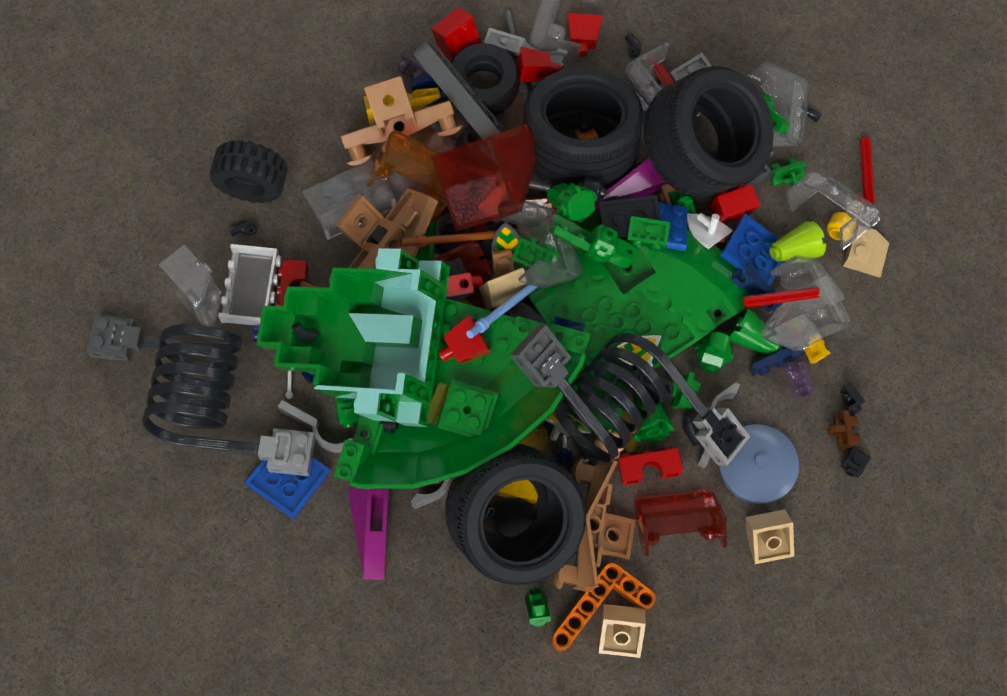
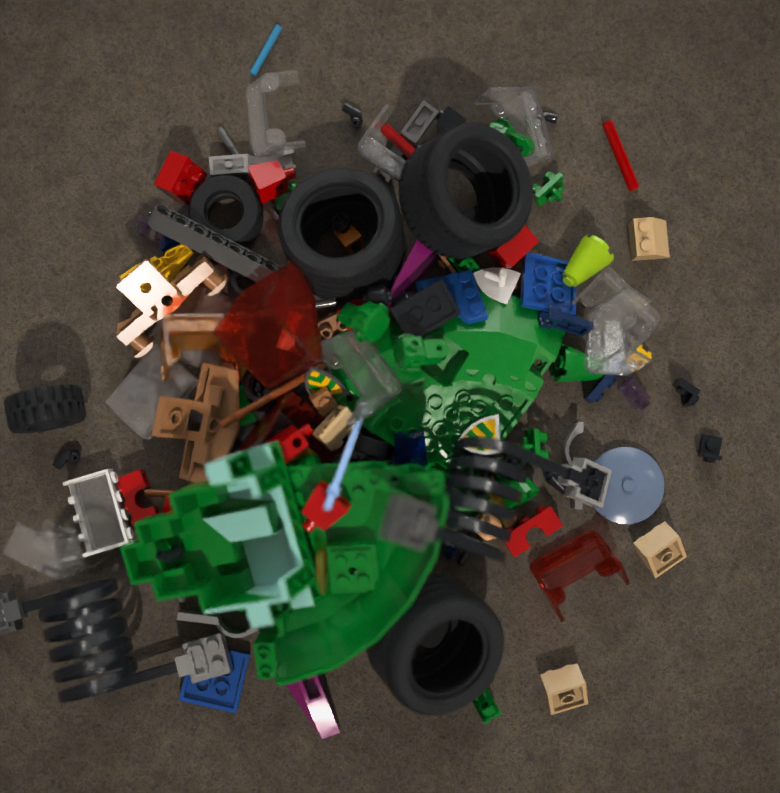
camera: 20 degrees left, 15 degrees up
(530, 251) = (351, 386): green bracket -> none
(570, 233) = (376, 355): green bracket -> none
(584, 30) = (300, 120): red torso -> none
(596, 542) = (507, 600): medium nougat piece -> none
(596, 600) = (524, 671): orange beam -> none
(648, 233) = (448, 320): green bracket -> none
(713, 352) = (549, 399): green piece -> none
(781, 297) = (591, 324): red axle -> none
(836, 222) = (616, 223): yellow head -> none
(844, 423) = (689, 423): reddish brown hips -> none
(862, 212) = (634, 205): clear windscreen -> none

